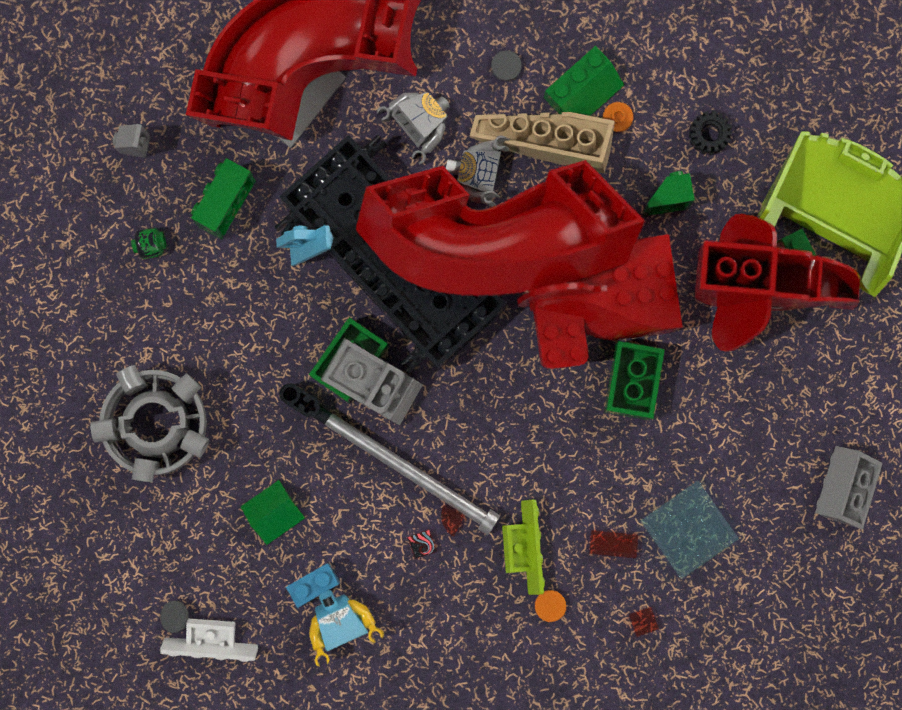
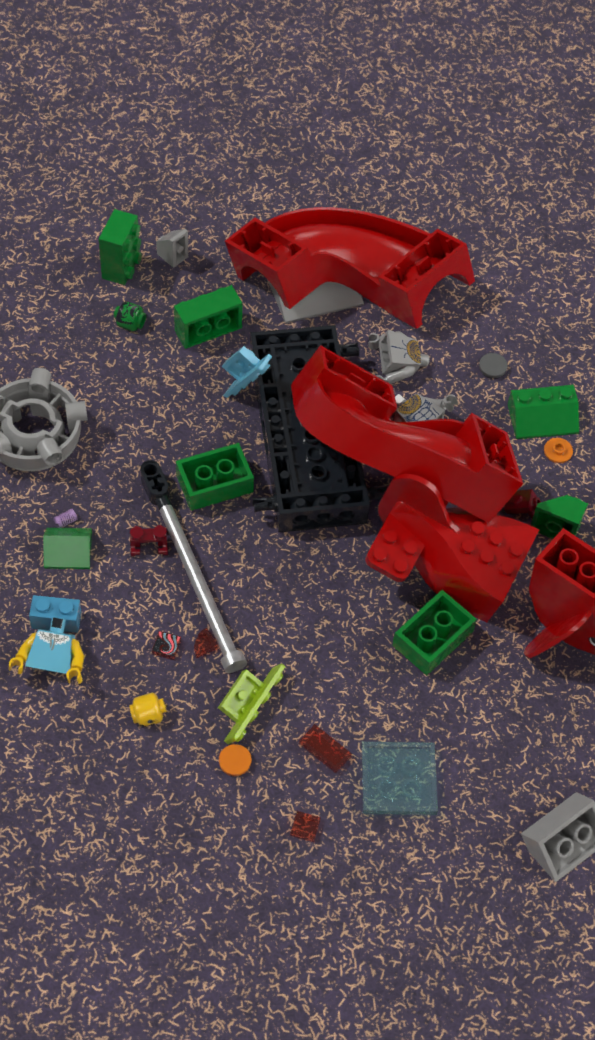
camera: 30 degrees right, 25 degrees down
(90, 183) = (120, 247): none -> green brick
(250, 479) = (69, 513): none -> lavender piece
(336, 458) = (140, 535): none -> dark red piece
(371, 381) = (221, 497): light grey piece -> none
(451, 614) = (147, 709): none -> yellow head
(551, 138) = (525, 438): tan wedge -> none
(630, 193) = (522, 502): none -> dark red bracket

